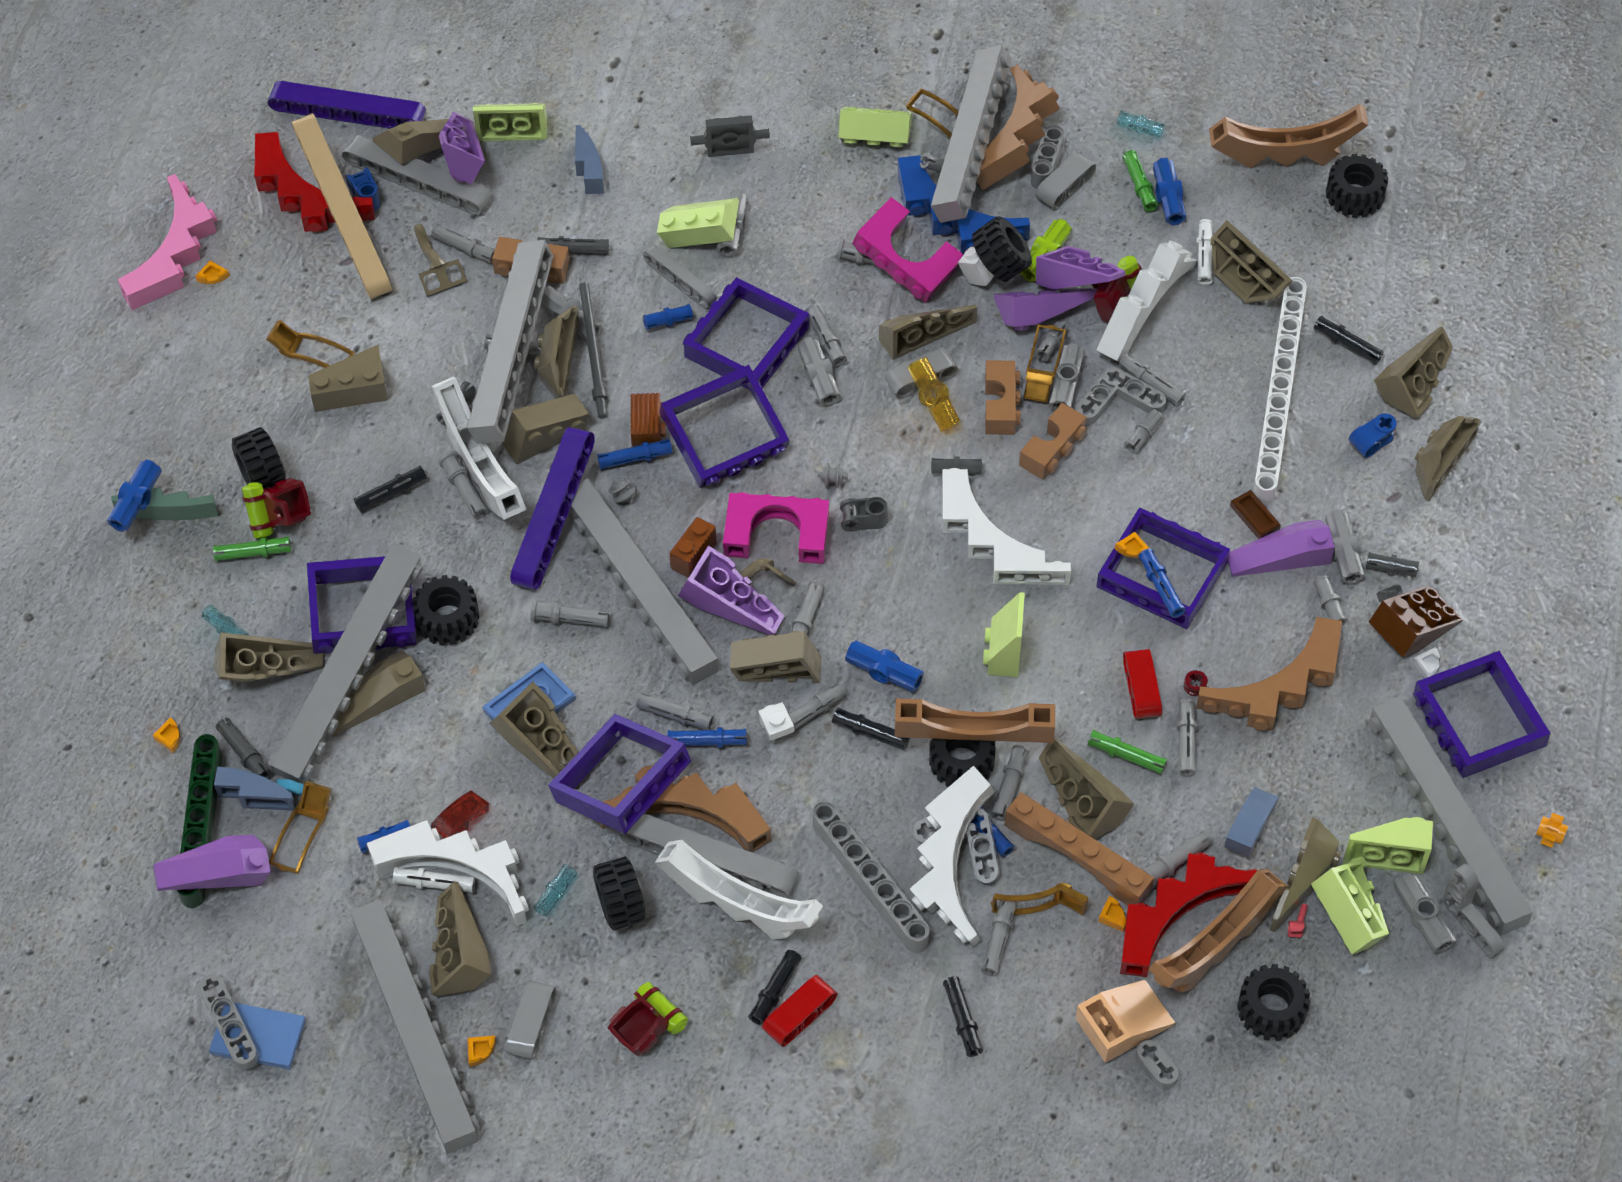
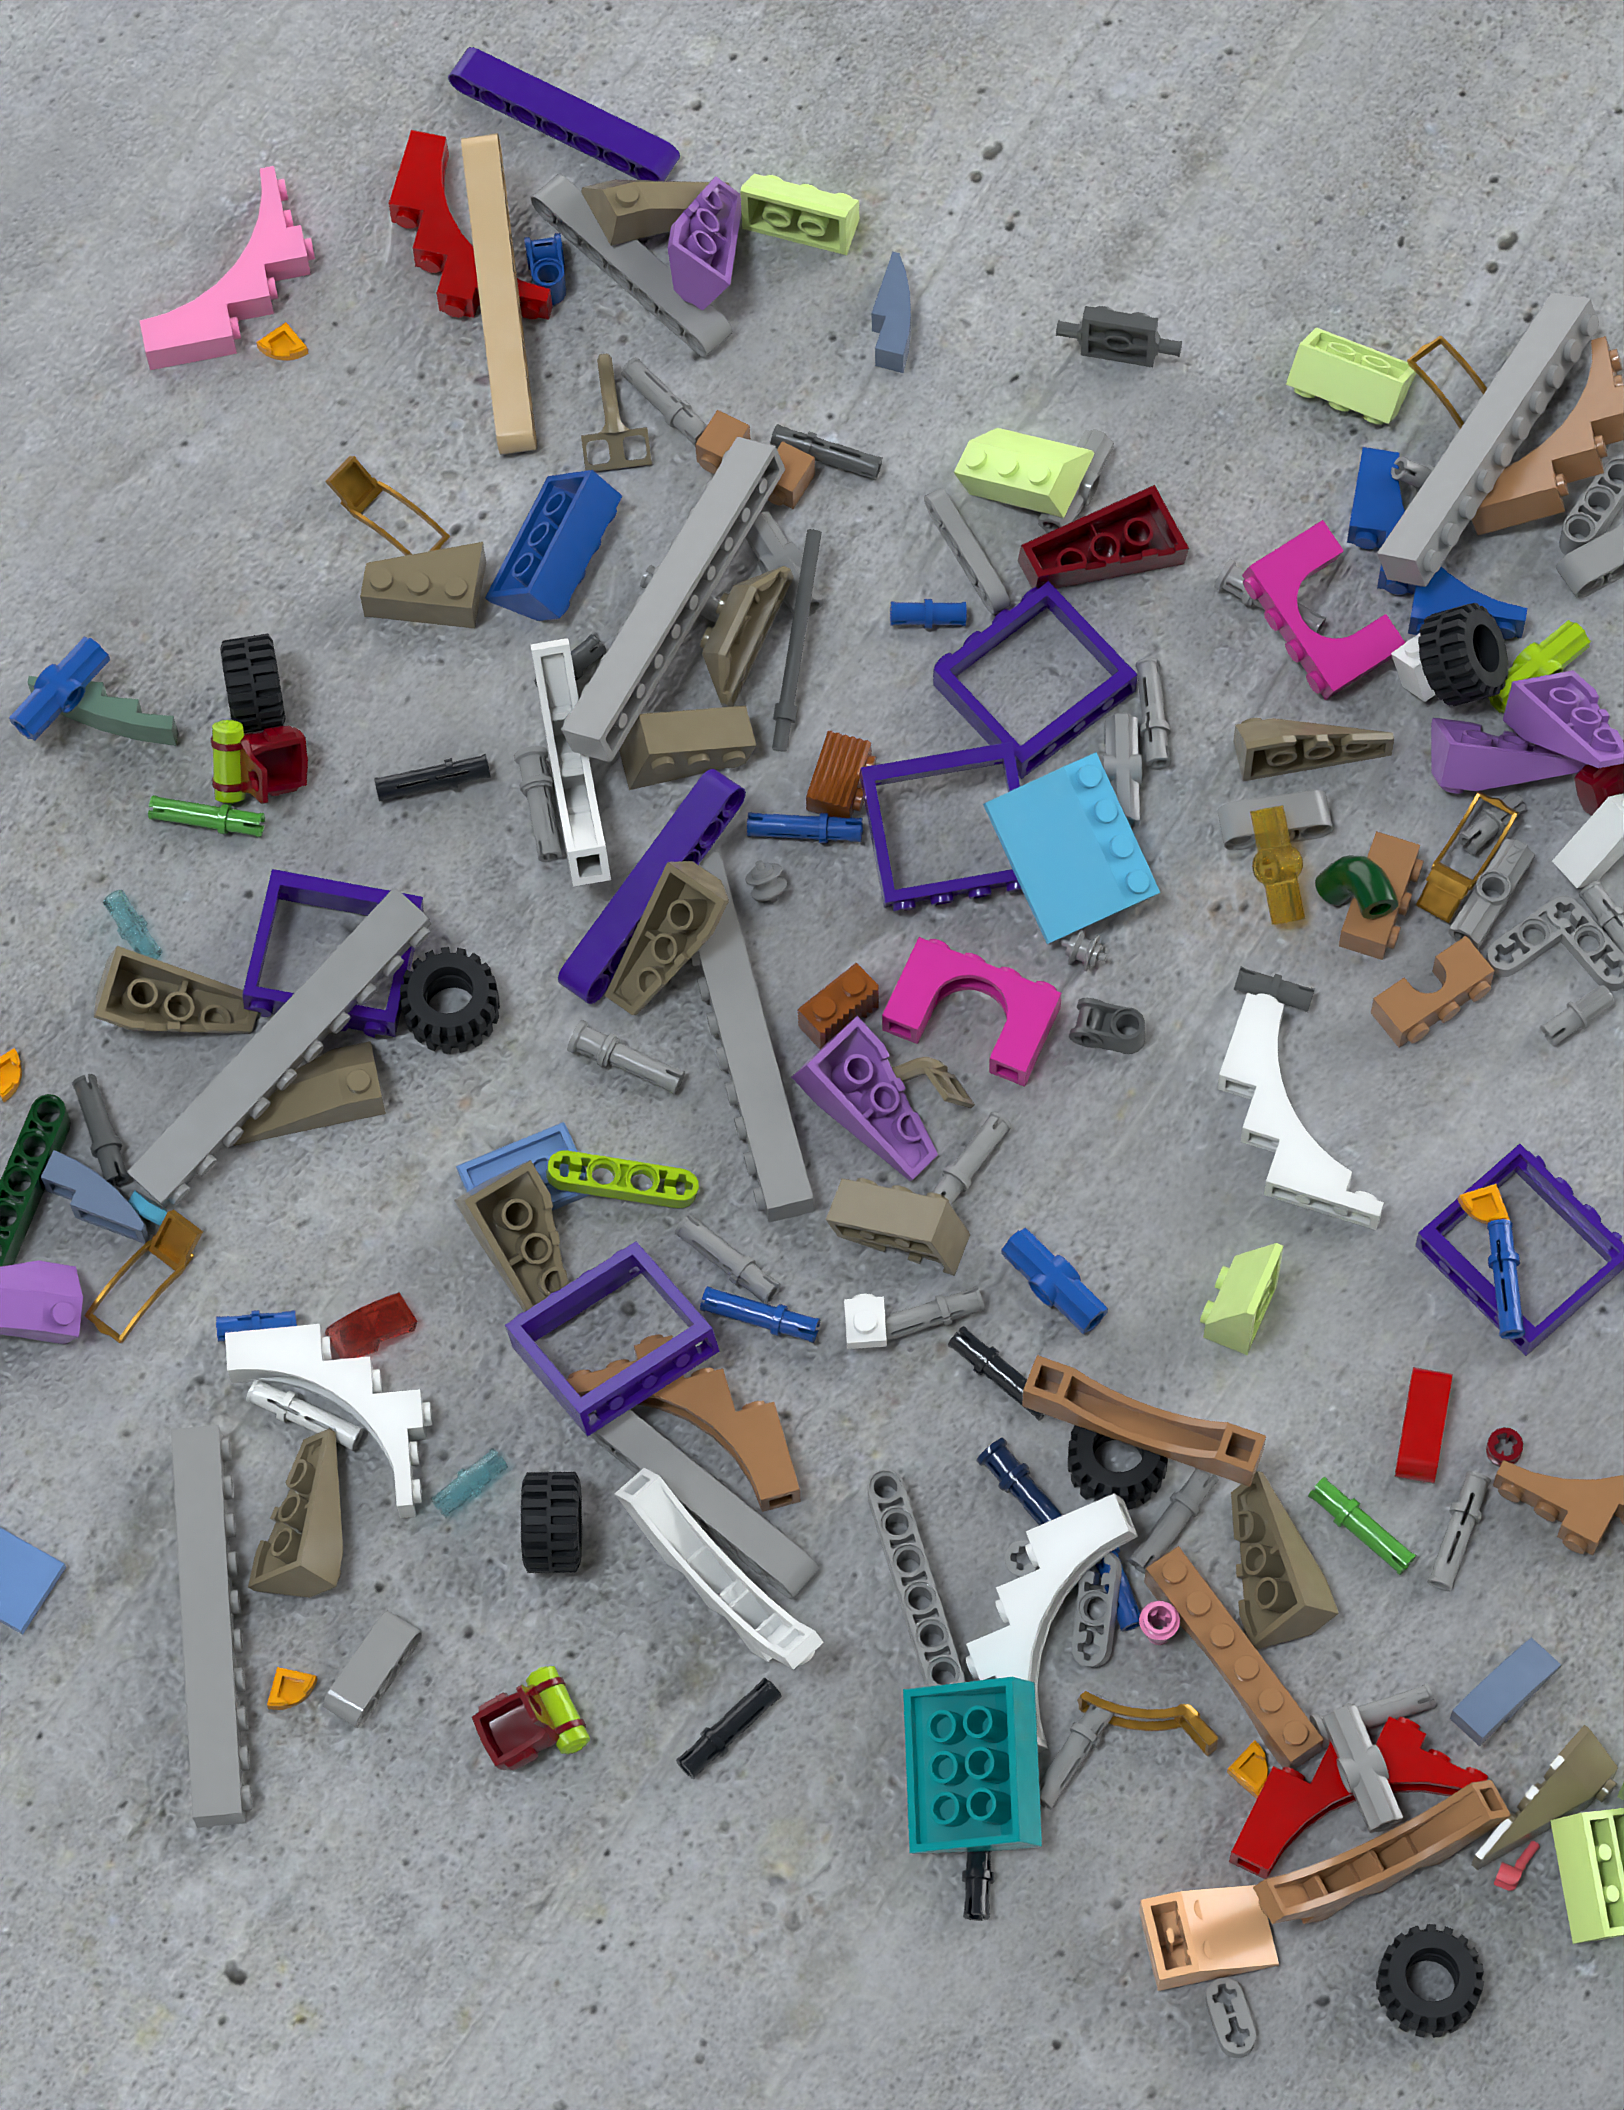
camera: 20 degrees right, 10 degrees up
(423, 338) = (555, 545): none -> blue slope
(574, 527) = (670, 932): none -> dark tan wedge
(591, 680) = (623, 1172): none -> lime beam
(764, 248) = (1107, 544): none -> dark red wedge
(799, 1010) = (750, 1775): red beam -> none
(806, 416) = (1071, 848): none -> medium azure slope
(903, 786) = (1015, 1478): none -> dark blue pin
(941, 958) = (972, 1766): none -> teal slope
(986, 386) = (1359, 878): none -> dark green cylinder
(1025, 842) = (1159, 1614): none -> bright pink cone
(1185, 886) = (1362, 1769): none -> light grey piece

